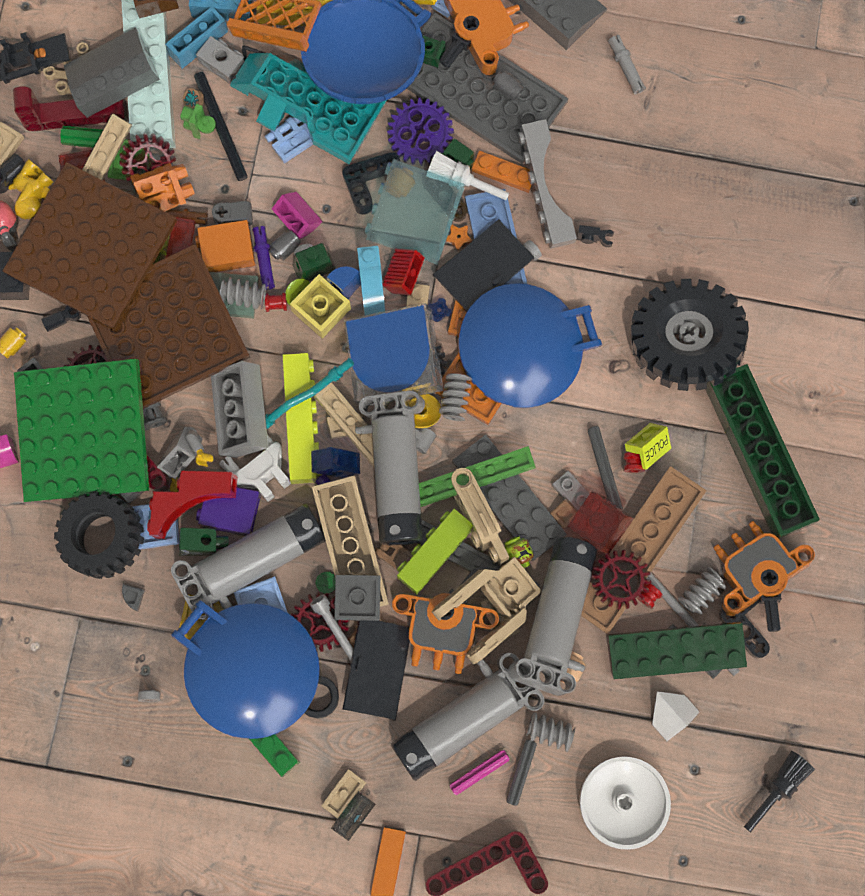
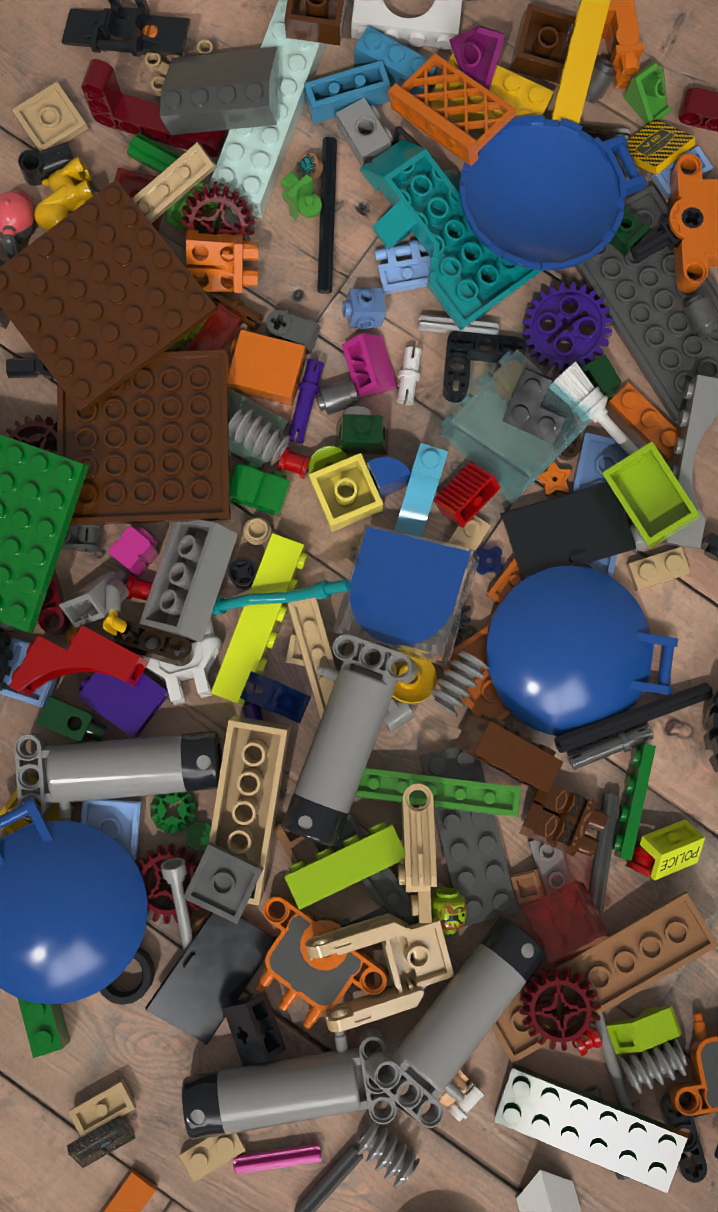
camera: 25 degrees right, 5 degrees up
(192, 408) = (135, 550): none -> dark pink brick
(207, 433) = (138, 588): none -> red bush
(243, 468) = (160, 653): none -> dark brown beam
(260, 330) = (259, 489): none -> green brick
(270, 359) = (257, 530): none -> tan plate
(274, 387) = (241, 569): none -> black wheel
(276, 177) = (364, 308): none -> medium blue brick
(303, 582) = (173, 824): none -> green gear
(327, 210) = (409, 375): none -> white pin
(338, 165) = (446, 325): none -> light grey axle
(418, 198) = (526, 409): none -> black plate
(423, 690) = (254, 1029): none -> black brick
(433, 788) = (211, 1153): none -> tan plate
(510, 427) = (509, 752): none -> reddish brown brick
(527, 216) = (651, 495): none -> lime piece
(556, 265) = (658, 568): none -> tan plate
(565, 457) = (562, 820): none -> reddish brown hips
(583, 370) = (633, 717): none -> black axle
(583, 390) = (620, 742): none -> dark grey pin
(588, 675) = (472, 1096): none -> white pin
(611, 433) = (631, 812): none -> green plate
(685, 572) = (647, 1030): none -> lime slope

